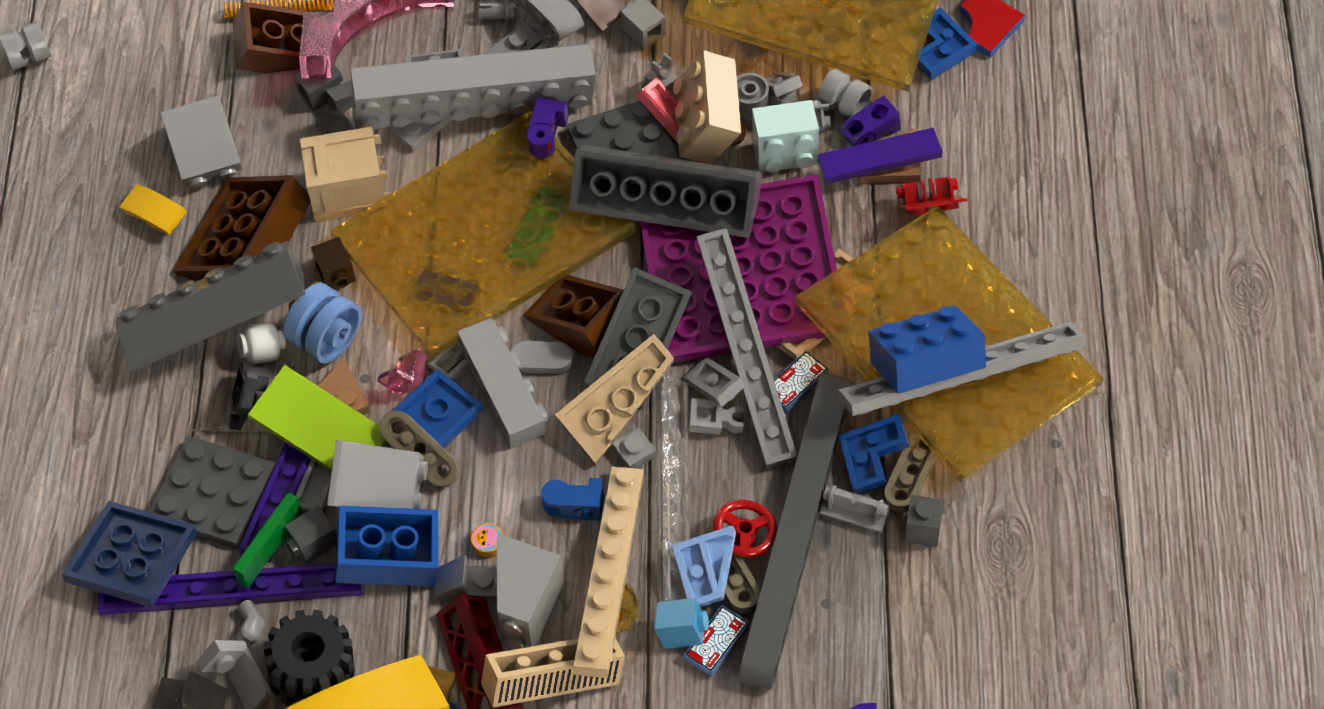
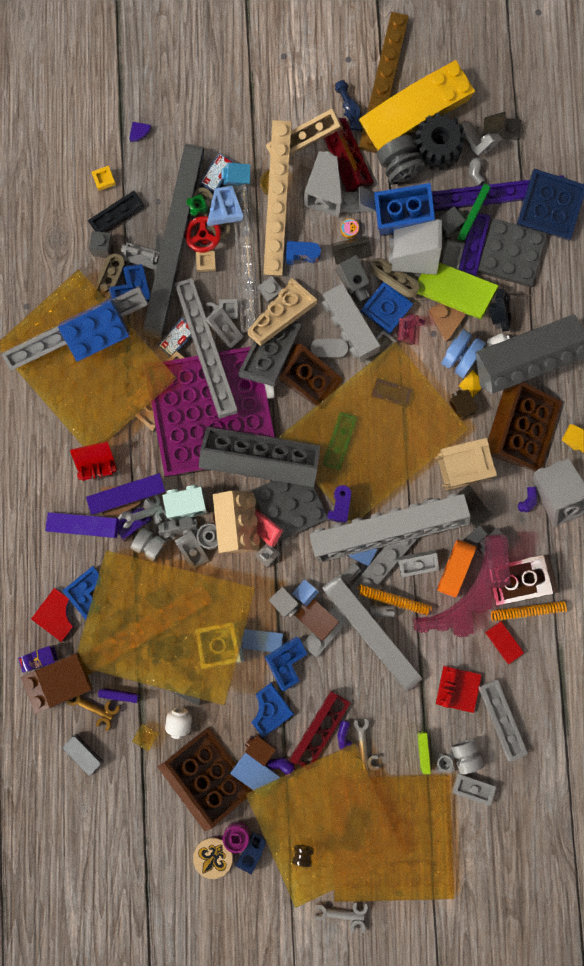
camera: 175 degrees right, 25 degrees up
(249, 139) = (530, 502): none -> dark purple arm
(381, 47) = (456, 568): none -> orange beam
(383, 626) = (400, 159): none -> dark grey wheel
(476, 23) = (417, 608): none -> light orange piece
(485, 438) = (352, 270): none -> dark grey torso
(494, 507) = (348, 248): none -> clear smoke slope
(609, 33) = (305, 592): none -> medium blue tile
(742, 487) = (205, 261): none -> tan plate
(750, 562) = (197, 200): none -> green plate
(835, 136) = (152, 509): none -> light grey bar
(900, 581) = (116, 213): none -> black tile
(923, 636) = (103, 178): none -> yellow plate
(948, 119) = (82, 525): none -> dark purple tile

